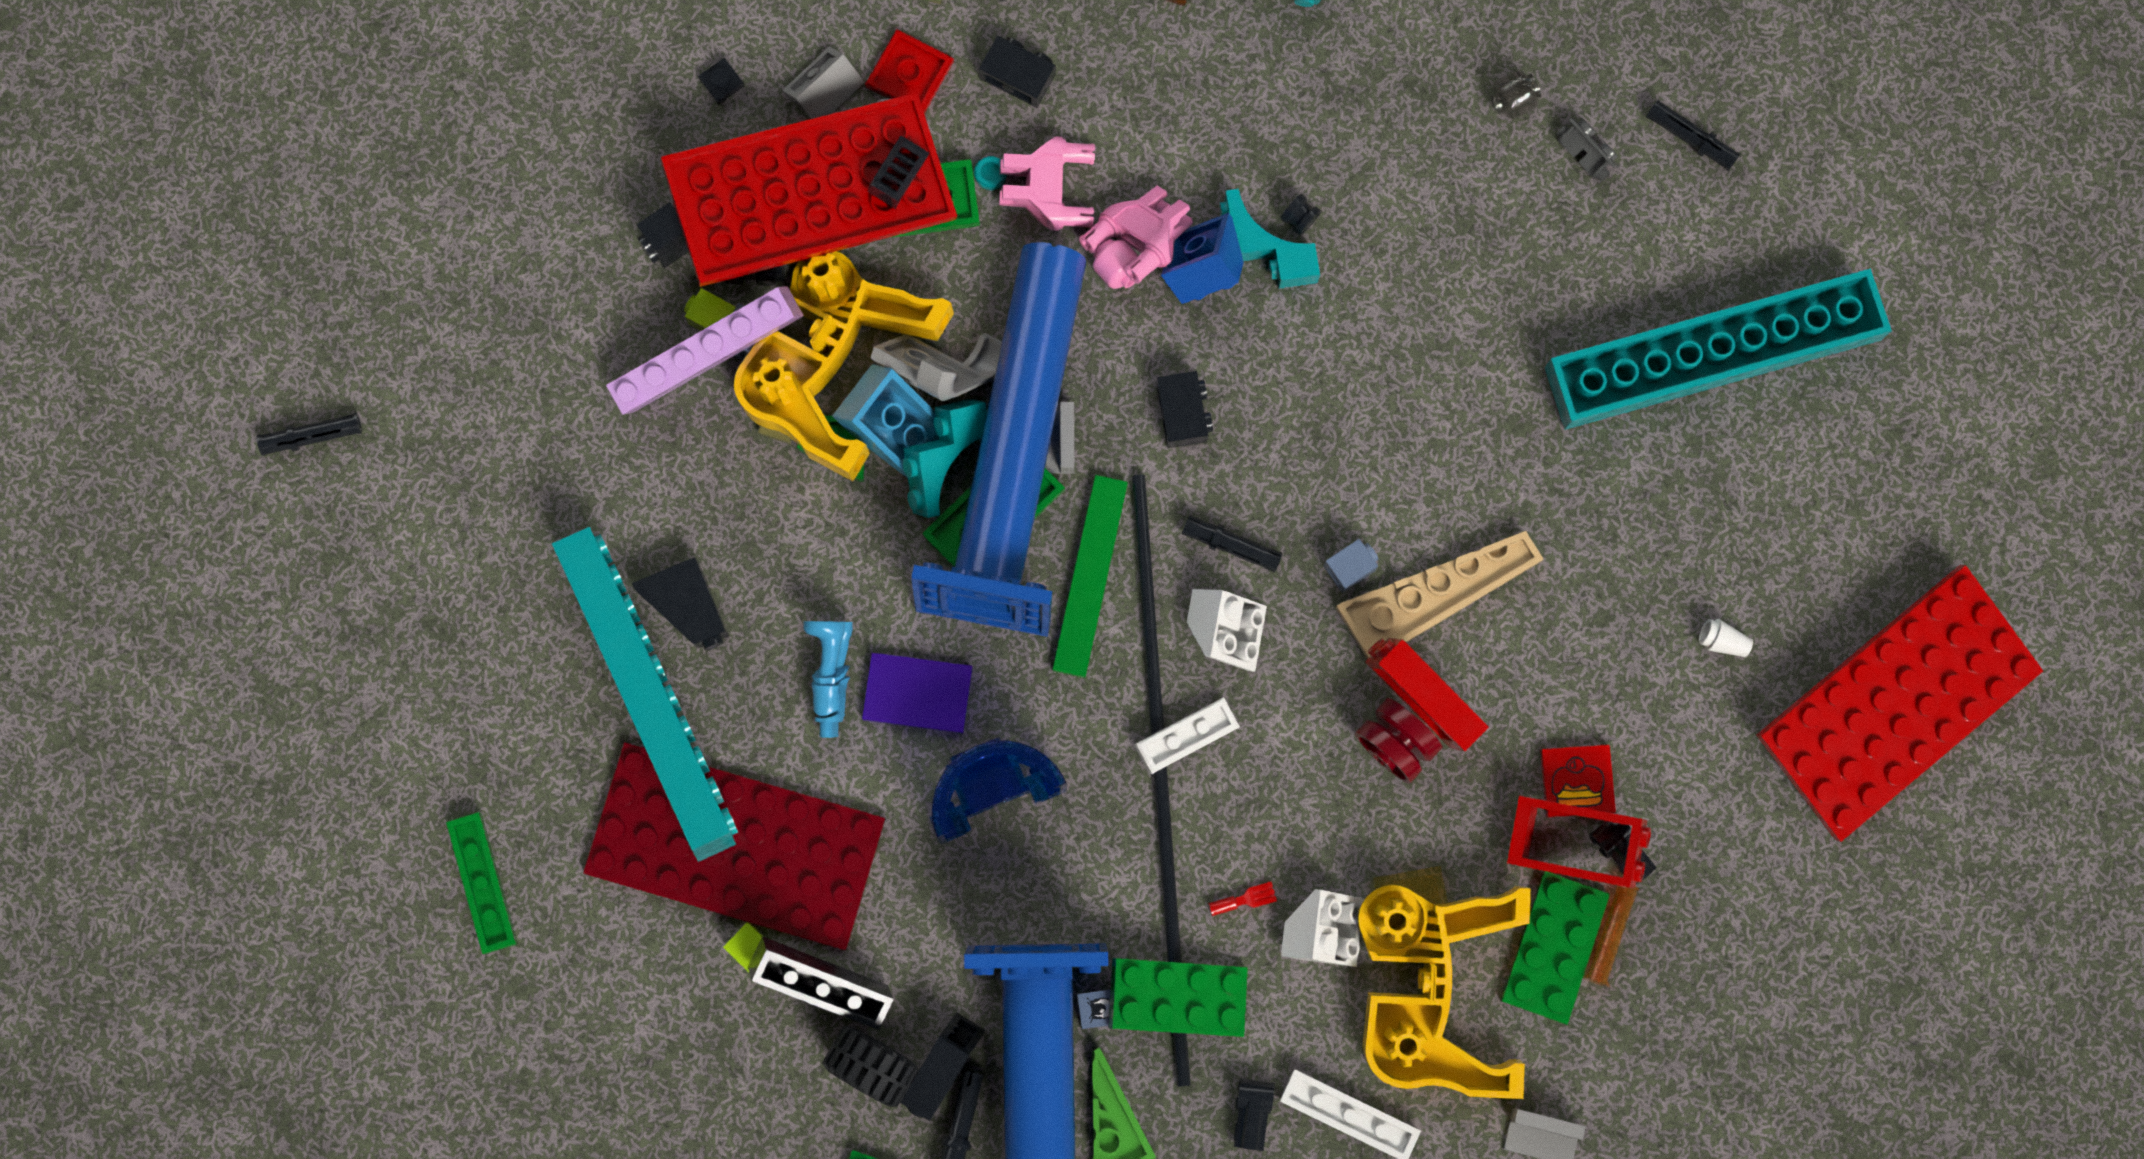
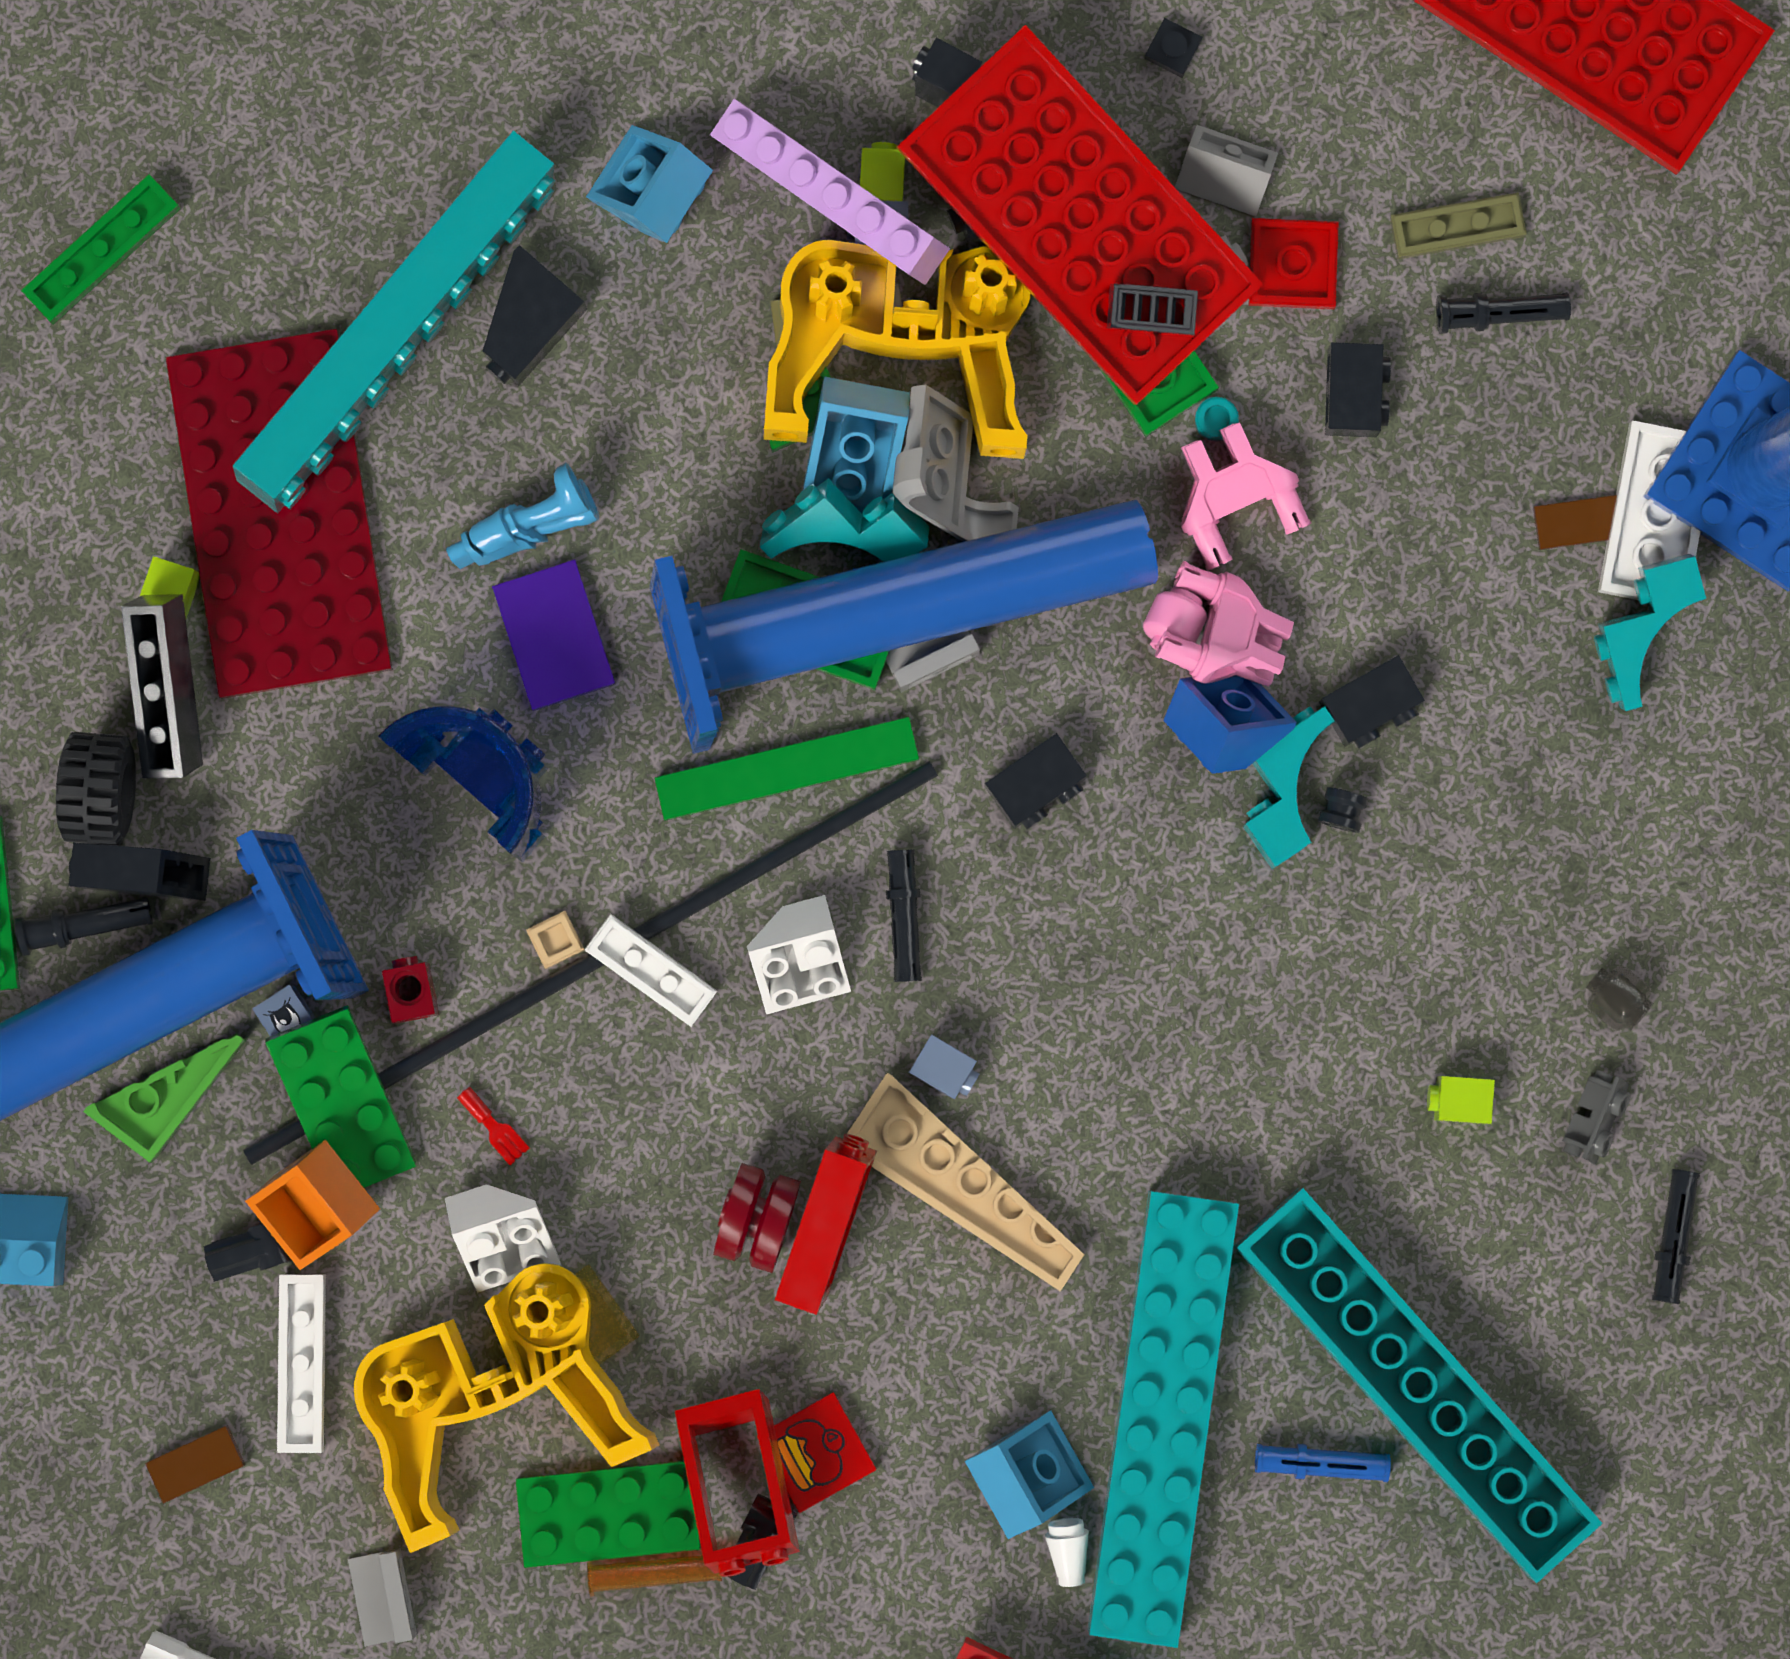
camera: 70 degrees right, 5 degrees up
(633, 474) = (650, 183): none -> dark azure slope
(1133, 793) = (555, 940): none -> tan tile
(1136, 906) = (424, 1005): none -> dark red brick
(1237, 159) = (1373, 701): none -> black brick
(1244, 1050) = (312, 1205): none -> orange piece
(1536, 229) = (1461, 1099): none -> lime brick
(1661, 641) = (1029, 1475): none -> dark azure slope
(1664, 531) = (1163, 1419): none -> teal brick
(1735, 451) = (1373, 1465): none -> blue pin

